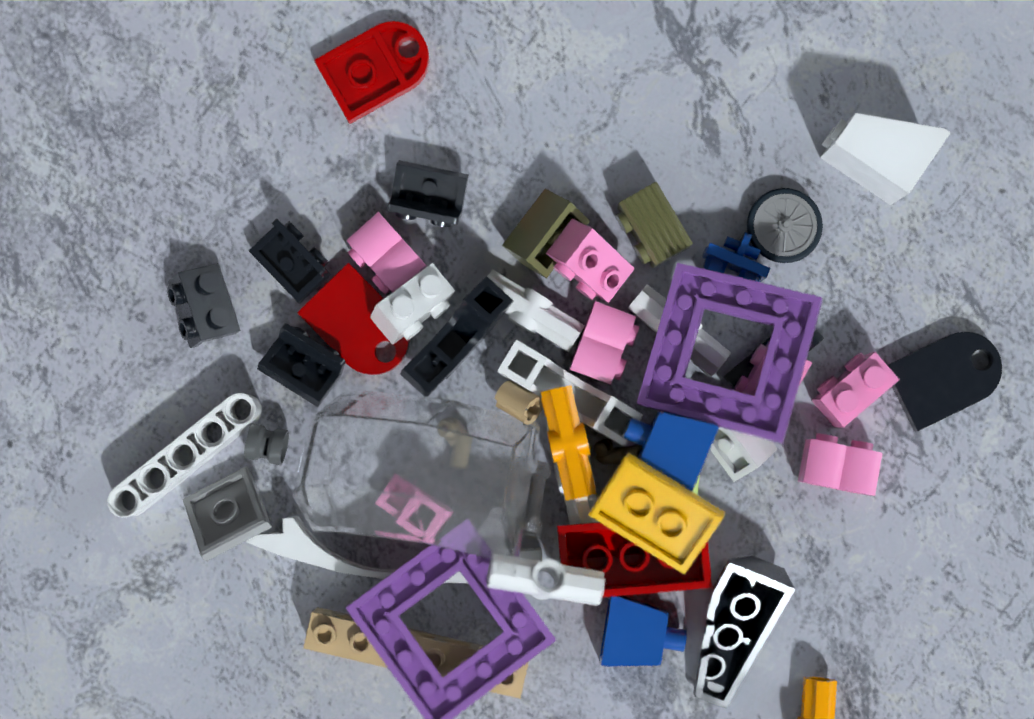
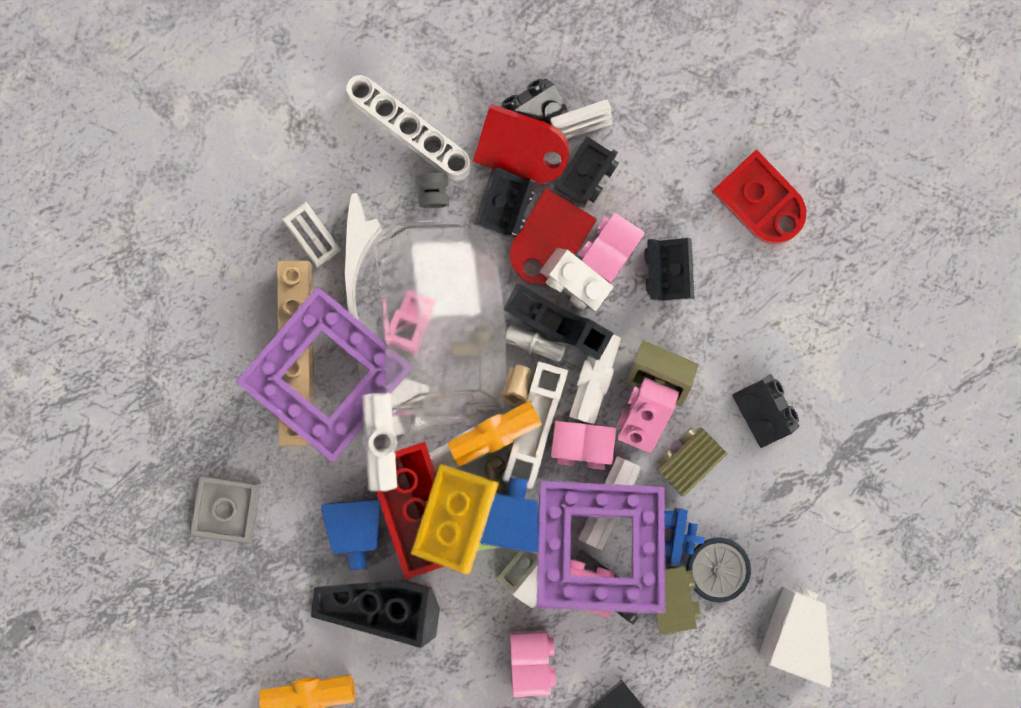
camera: 70 degrees right, 0 degrees up
(226, 513) = (370, 173): light grey tile -> none
(229, 252) = (584, 119): none -> white tile
(239, 330) = (520, 145): none -> red tile
(253, 611) = (327, 255): none -> white tile
(474, 371) = (534, 343): none -> white axle
(617, 124) = (767, 410): none -> black bracket
(818, 279) = (679, 609): none -> olive brick
(855, 389) = (596, 660): bright pink brick -> none

